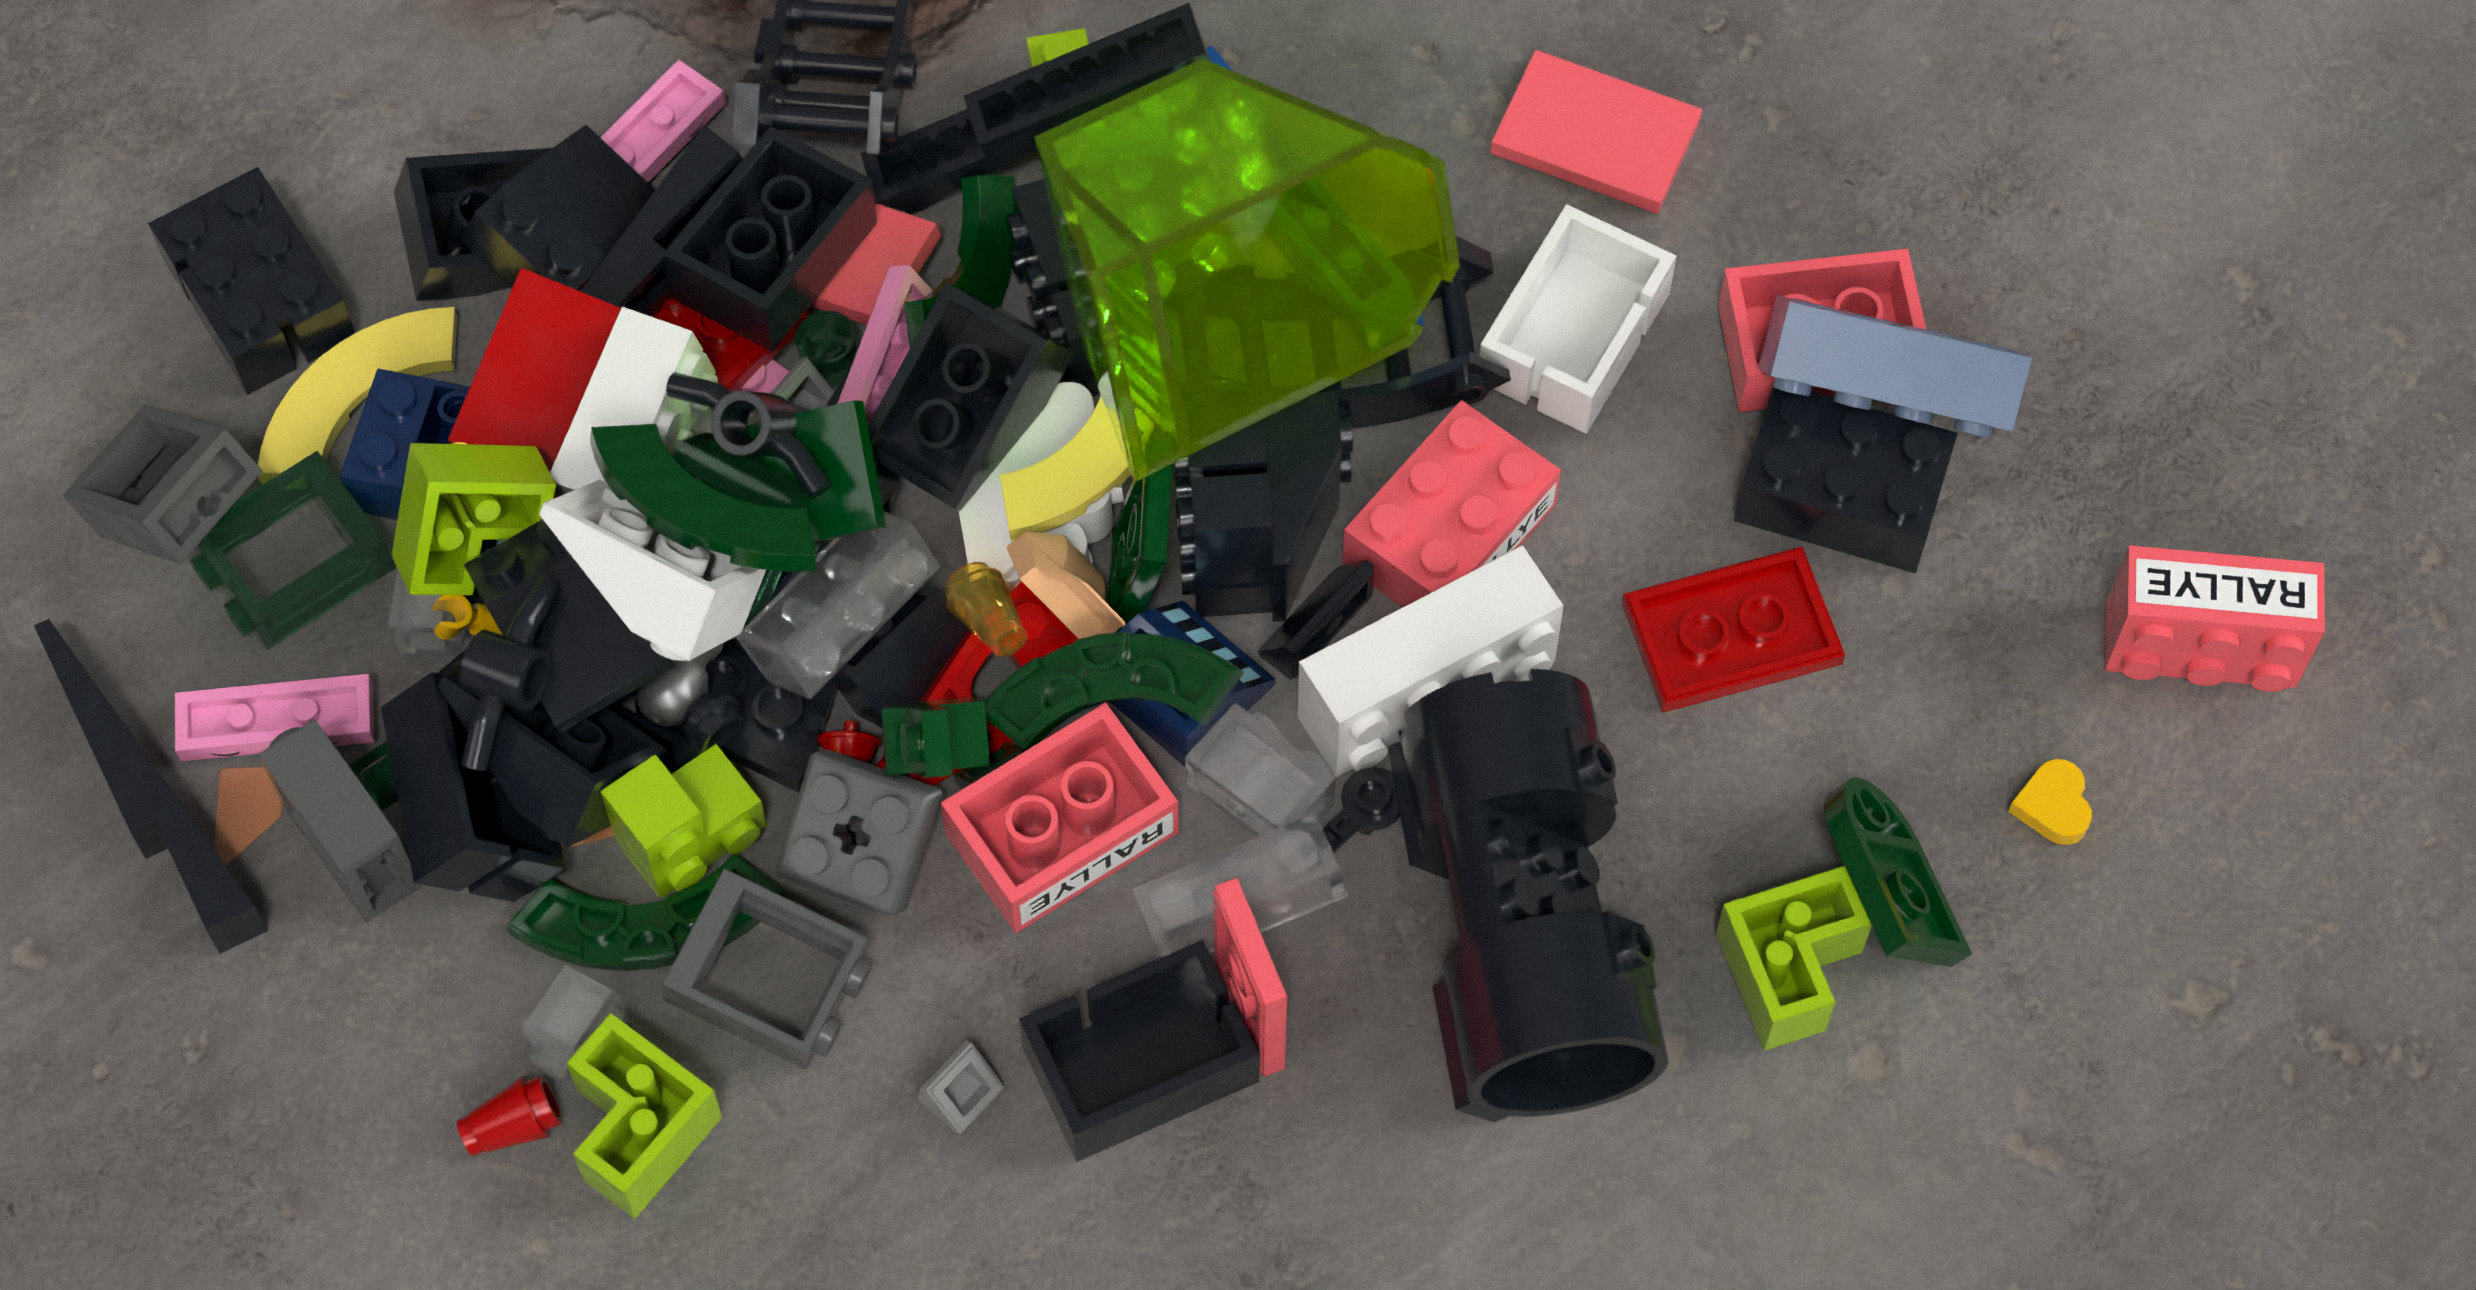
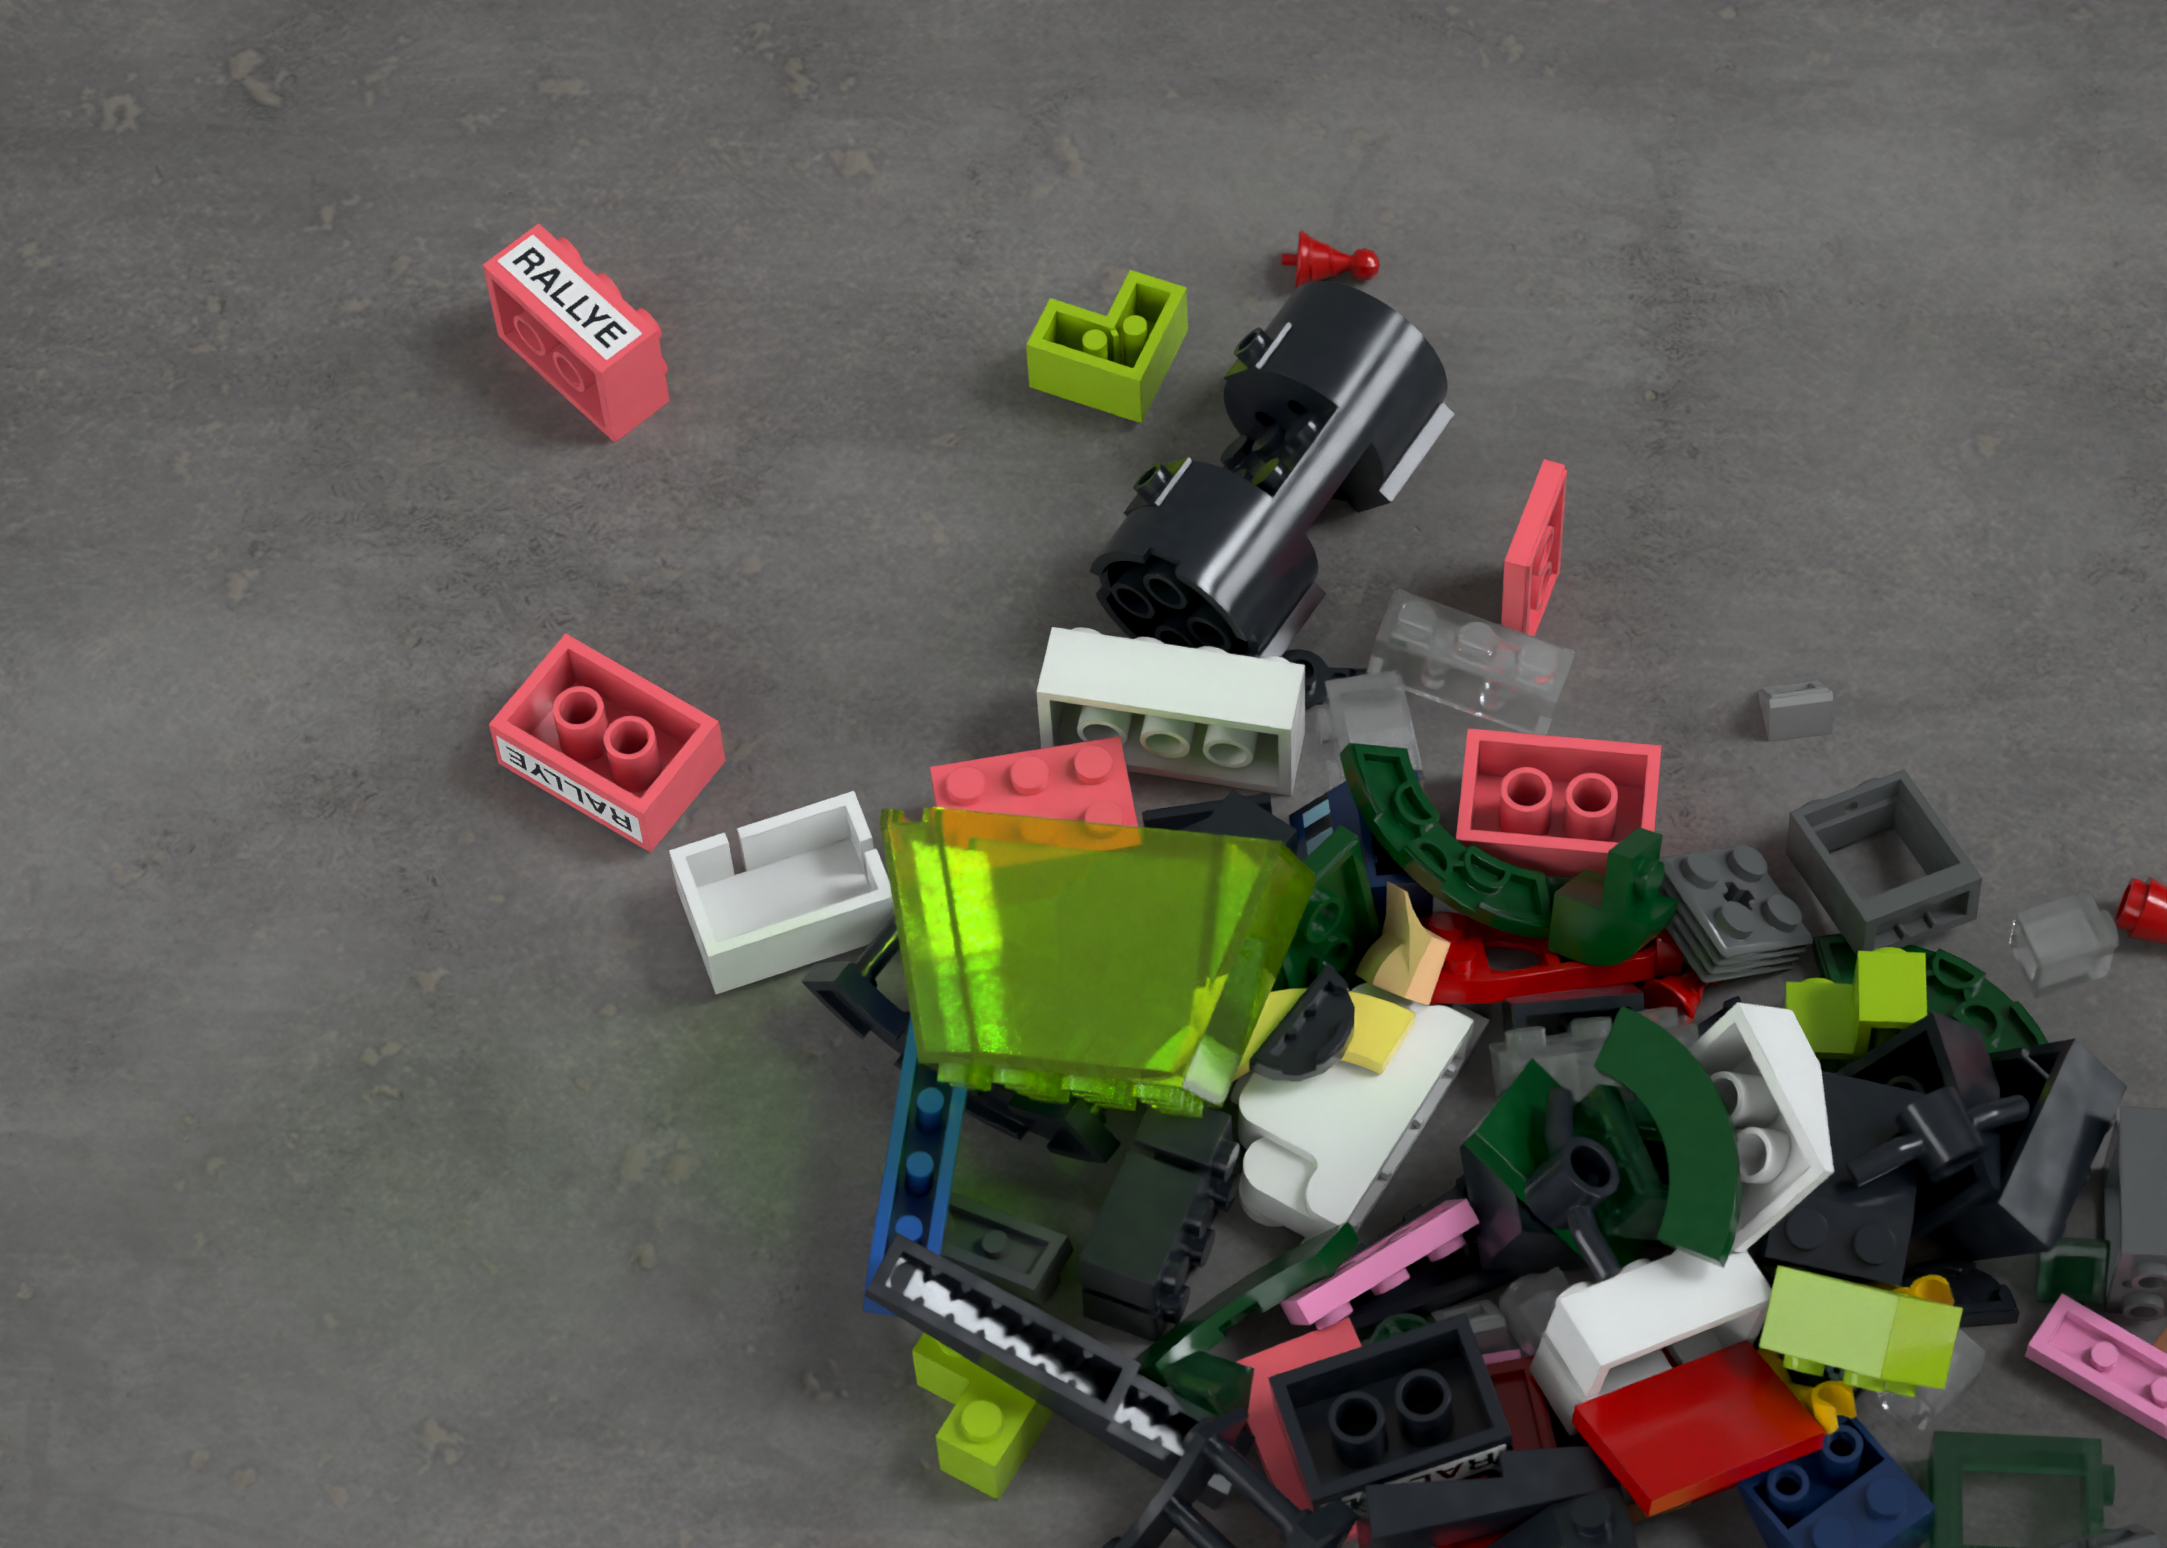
camera: 135 degrees left, 5 degrees down
(652, 1116) = (2061, 818): lime brick -> none
(931, 194) = (1211, 1382): none -> clear green slope
(964, 395) = (1350, 1145): black slope -> none
(984, 605) = (1488, 966): clear yellow cone -> none
(1066, 449) = (1311, 1033): none -> black tile
(1147, 1053) = (1648, 607): black piece -> none
(1596, 131) = (587, 1066): coral tile -> none
(1720, 1198) = (1320, 261): none -> red piece
(1732, 629) = (905, 612): red tile -> none
(1845, 478) = (712, 631): black brick -> none
(1892, 876) = (992, 340): dark green tile -> none
(1893, 364) = (611, 628): sand blue brick -> none
(2054, 803) = (811, 335): yellow tile -> none

